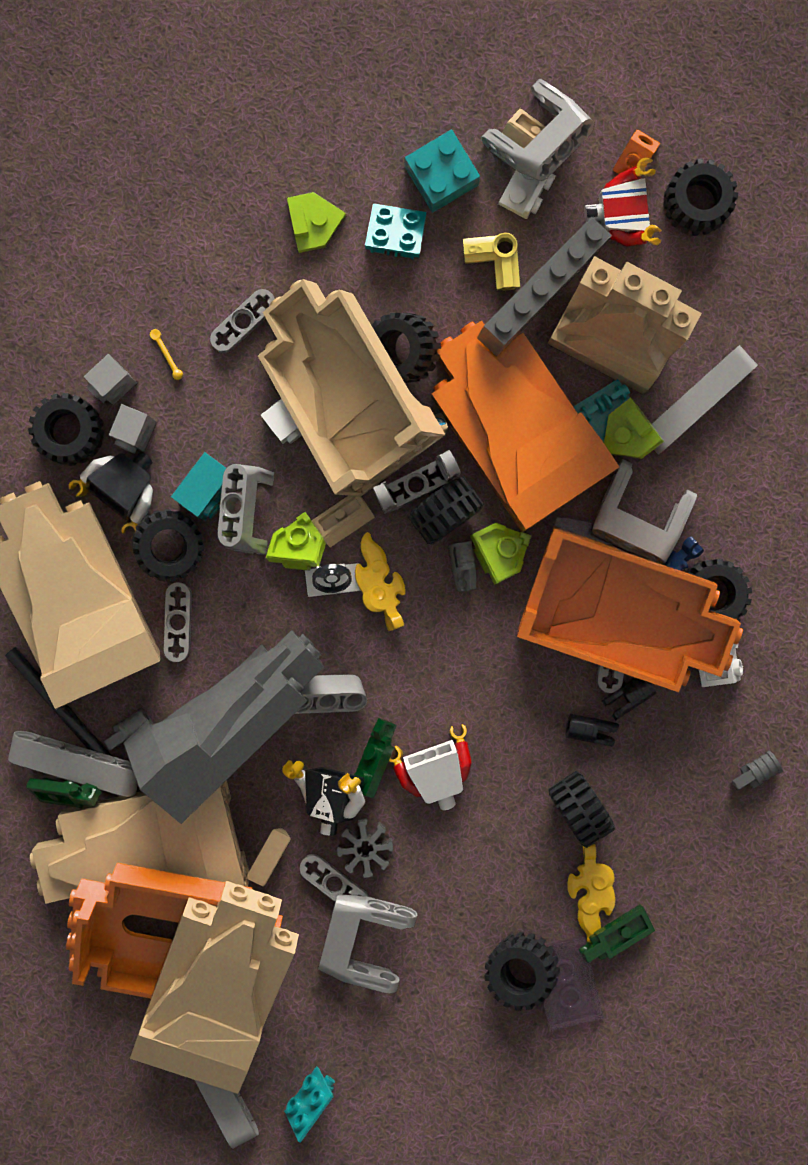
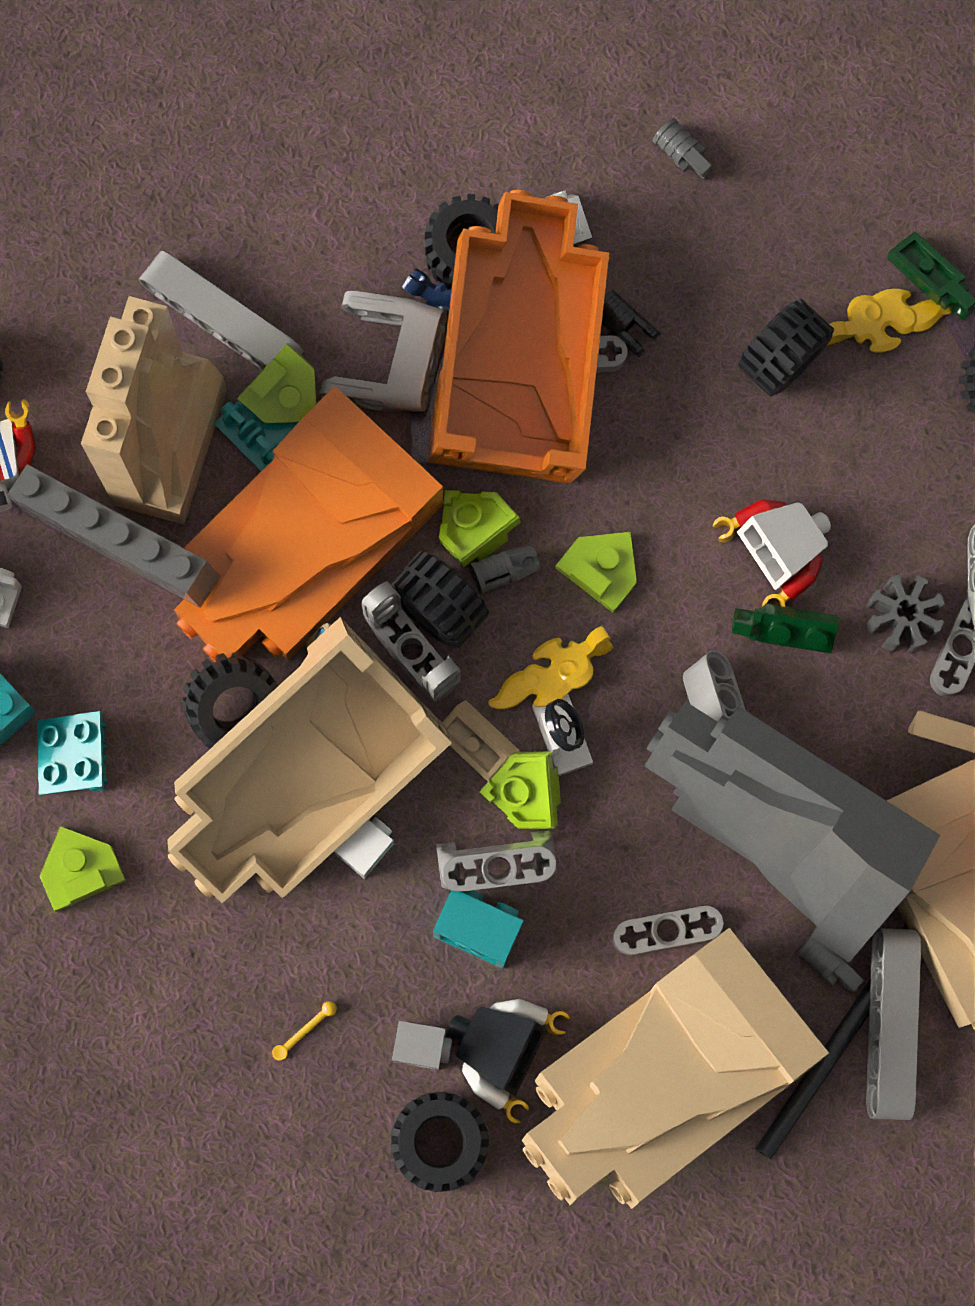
camera: 100 degrees left, 10 degrees down
(63, 793) = (938, 1026): dark green hinge -> none
(109, 380) = (359, 1093): light grey brick -> none
(172, 568) = (581, 936): black tyre -> none
(242, 309) = (219, 910): light grey beam -> none
(327, 794) = (848, 673): torso -> none
(449, 636) = (602, 567): none -> lime plate
(506, 265) = (74, 626): light yellow piece -> none
(586, 729) = (681, 365): black hinge -> none

